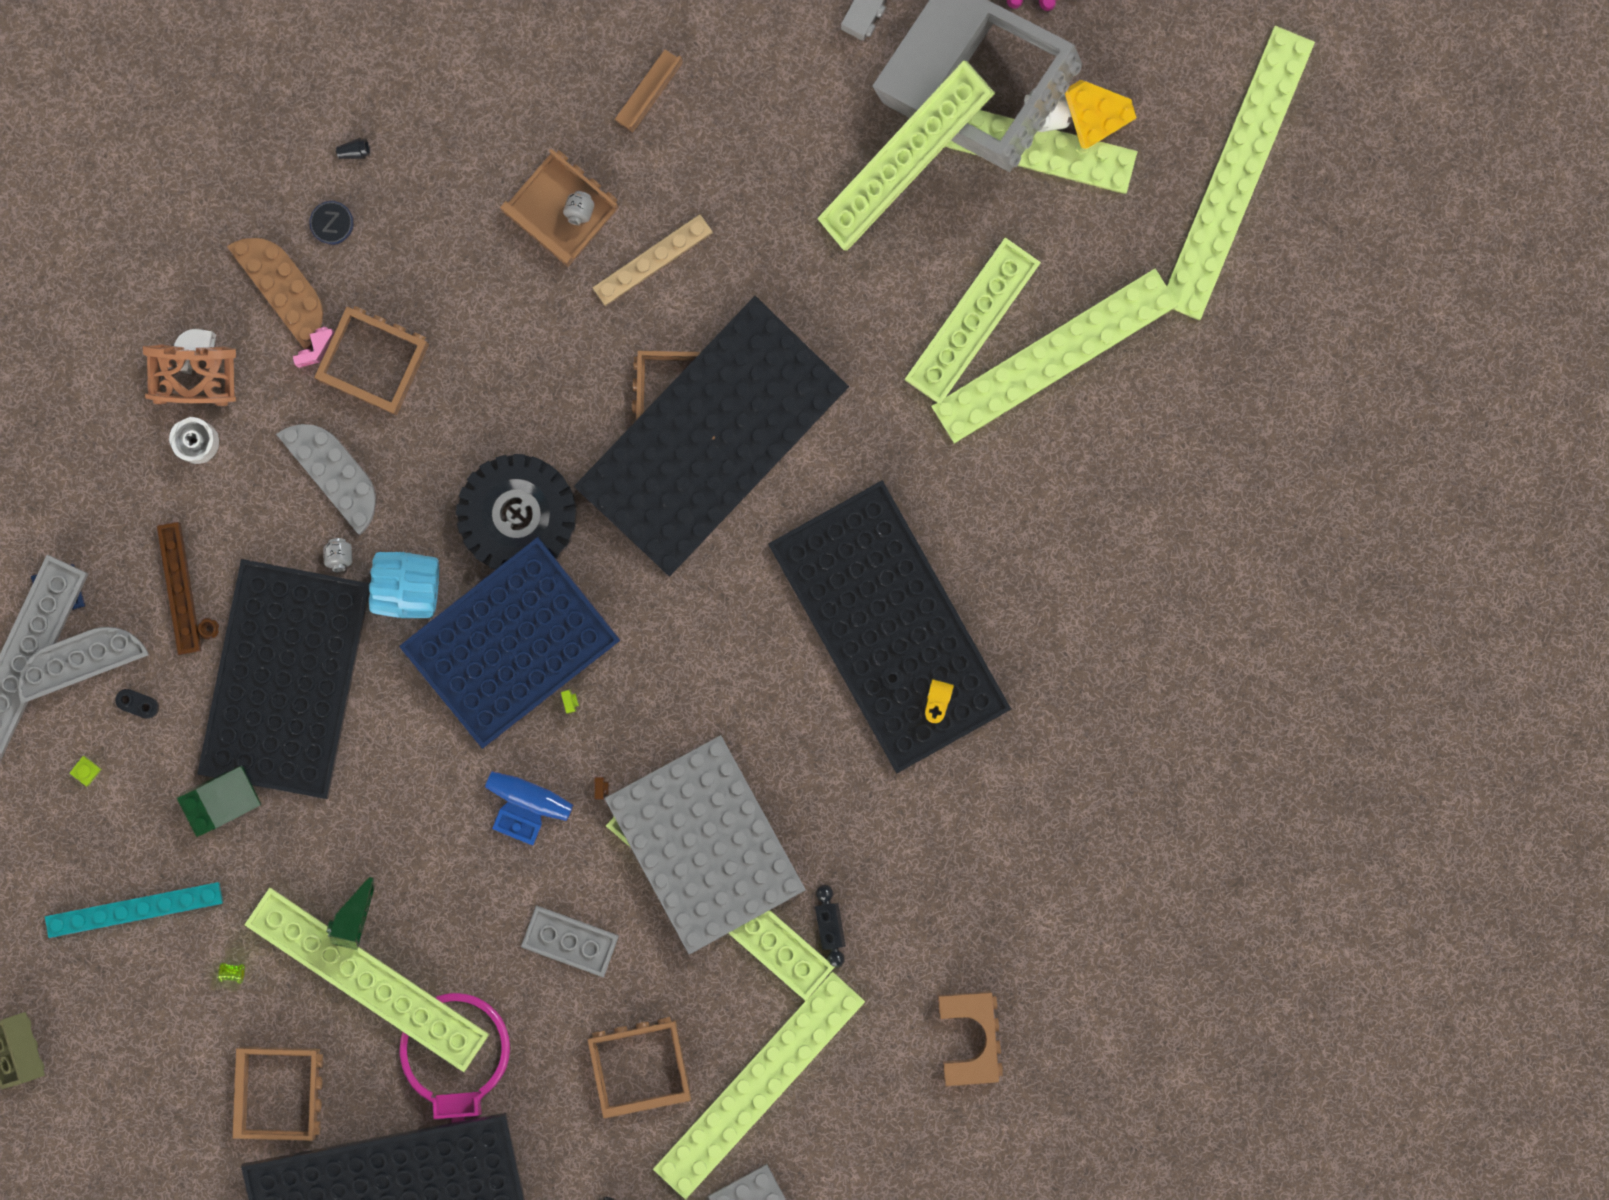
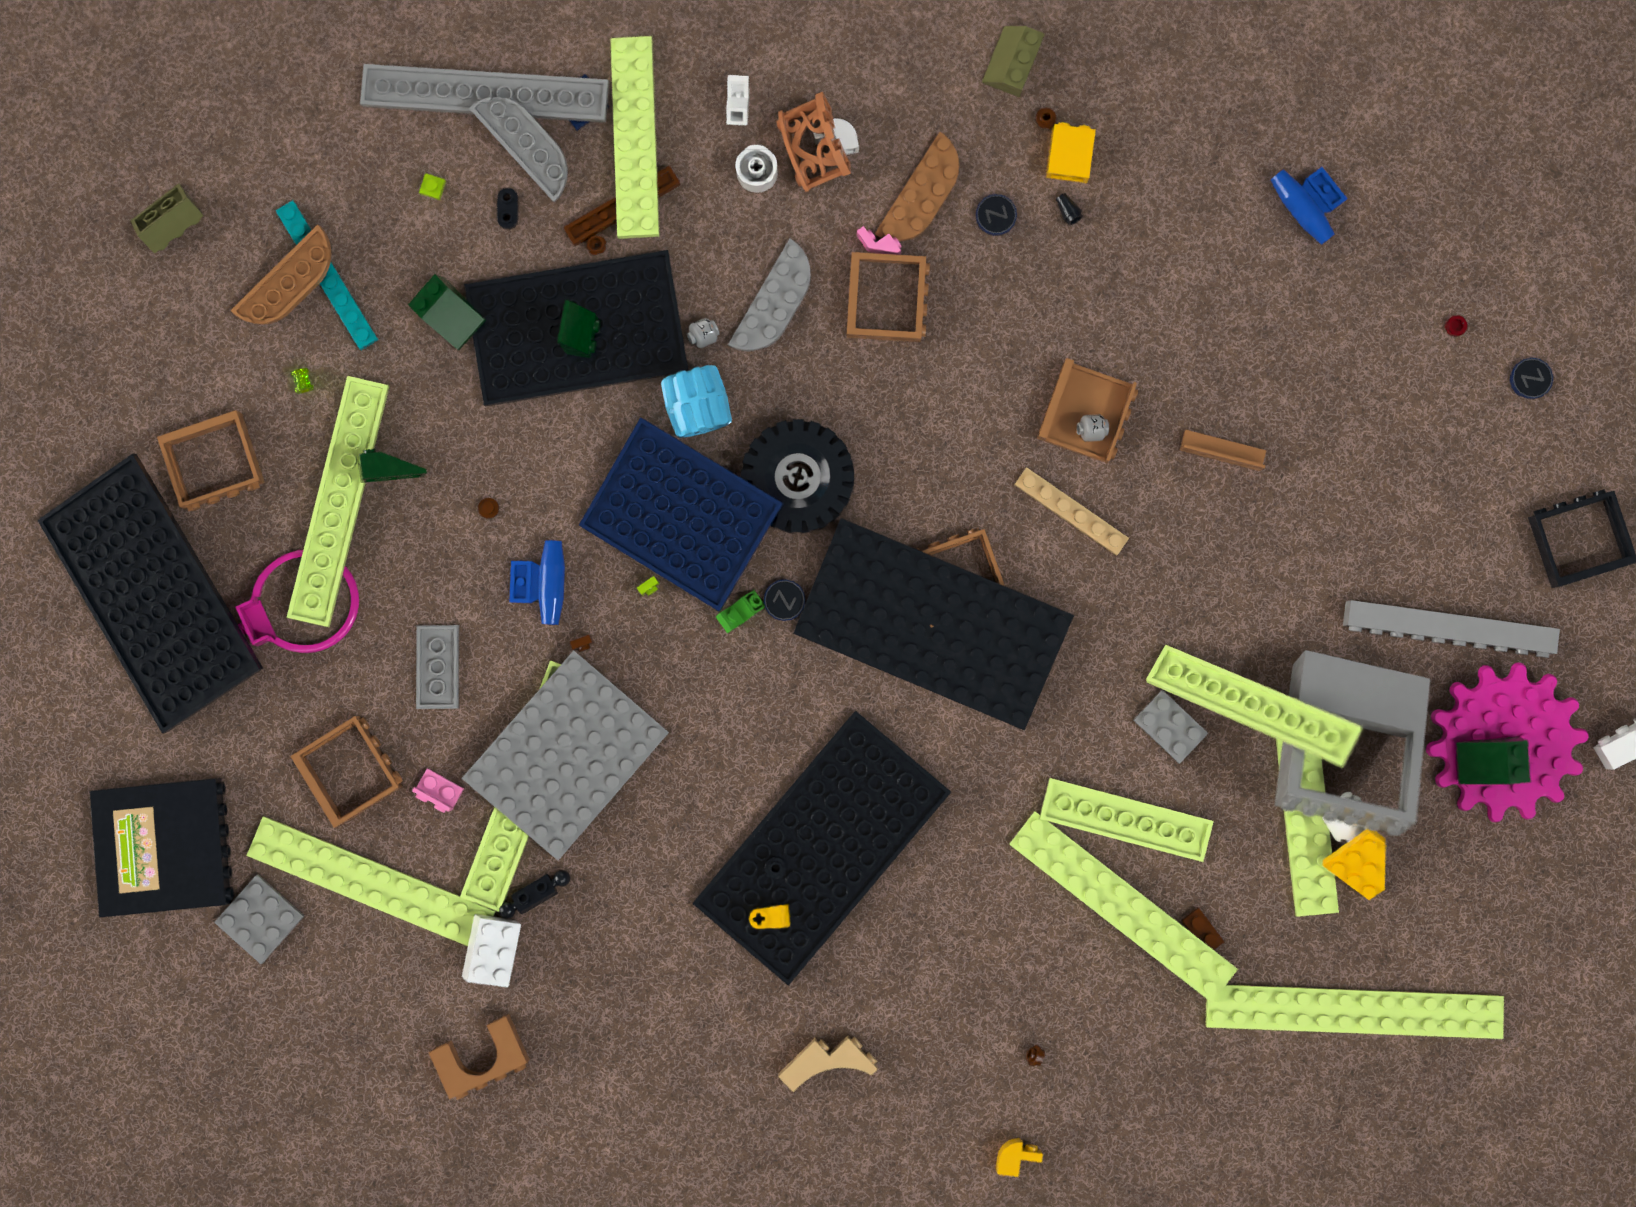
camera: 70 degrees right, 0 degrees up
(114, 549) = (634, 137): none -> yellowish green plate
(117, 433) = (737, 100): none -> white brick
(126, 950) = (288, 281): none -> medium nougat plate
(182, 147) = (1013, 59): none -> olive slope
(256, 143) = (1045, 124): none -> reddish brown plate
(289, 675) = (578, 330): none -> dark green slope
(298, 126) = (1070, 152): none -> yellow brick
(431, 832) = (488, 508): none -> reddish brown plate
(628, 620) = (740, 611): none -> bright green slope
(633, 573) = (784, 600): none -> black tile
(693, 984) = (438, 791): none -> bright pink bracket
(869, 987) = (491, 950): none -> white brick
(898, 244) = (1170, 726): none -> light grey plate
(1092, 708) = (816, 1059): none -> tan arch
(1103, 288) = (1202, 929): none -> reddish brown plate
(1167, 494) = (1035, 1056): none -> reddish brown plate
(1253, 553) = (1012, 1153): none -> yellow brick

